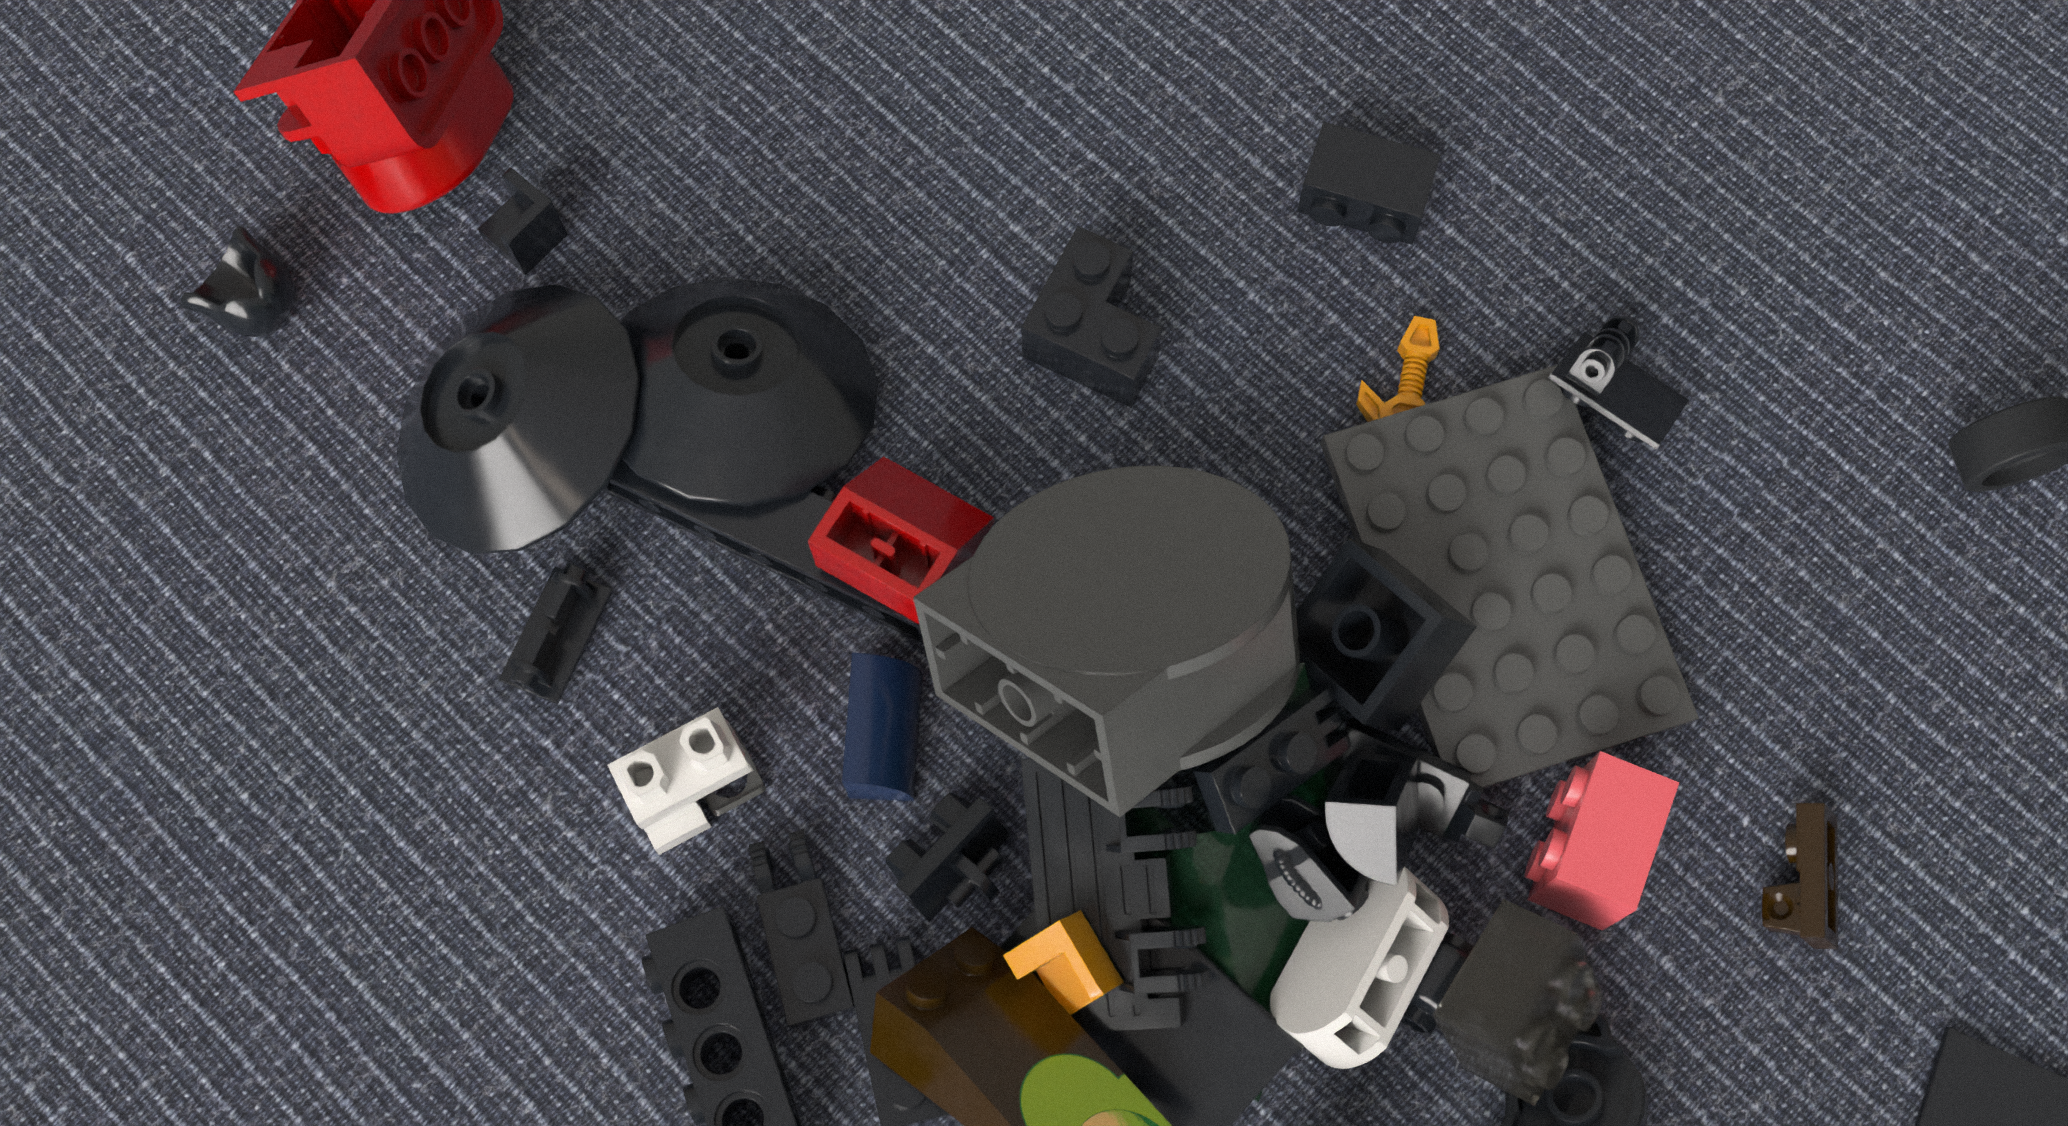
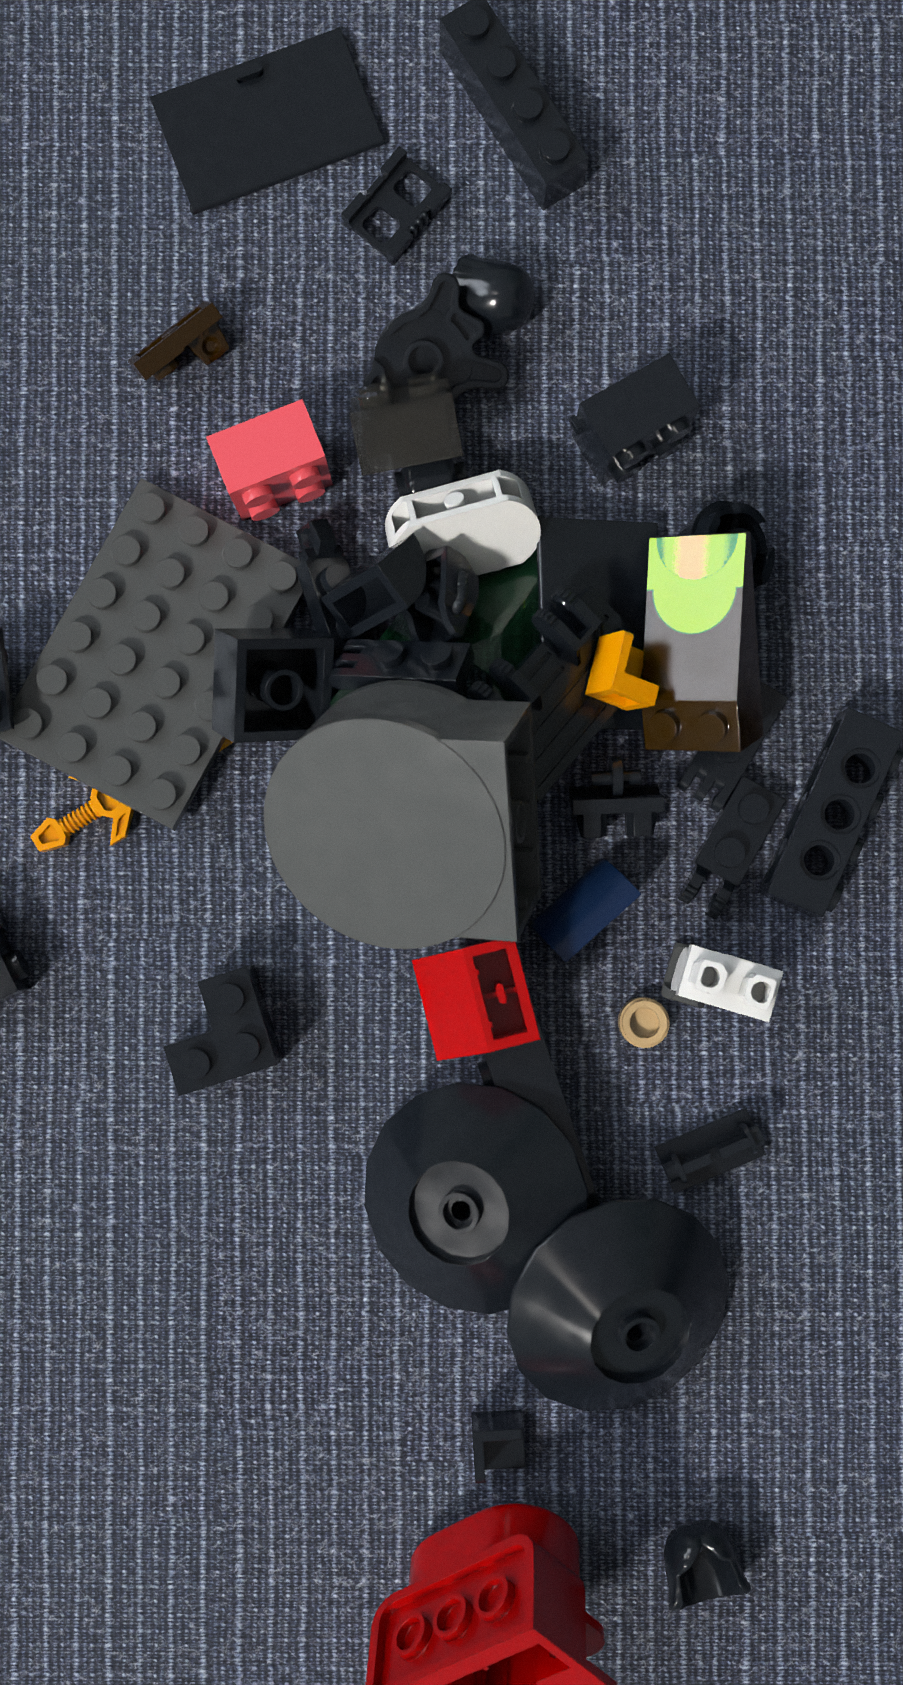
camera: 140 degrees left, 15 degrees up
(730, 686) = (643, 1022): none -> tan tile

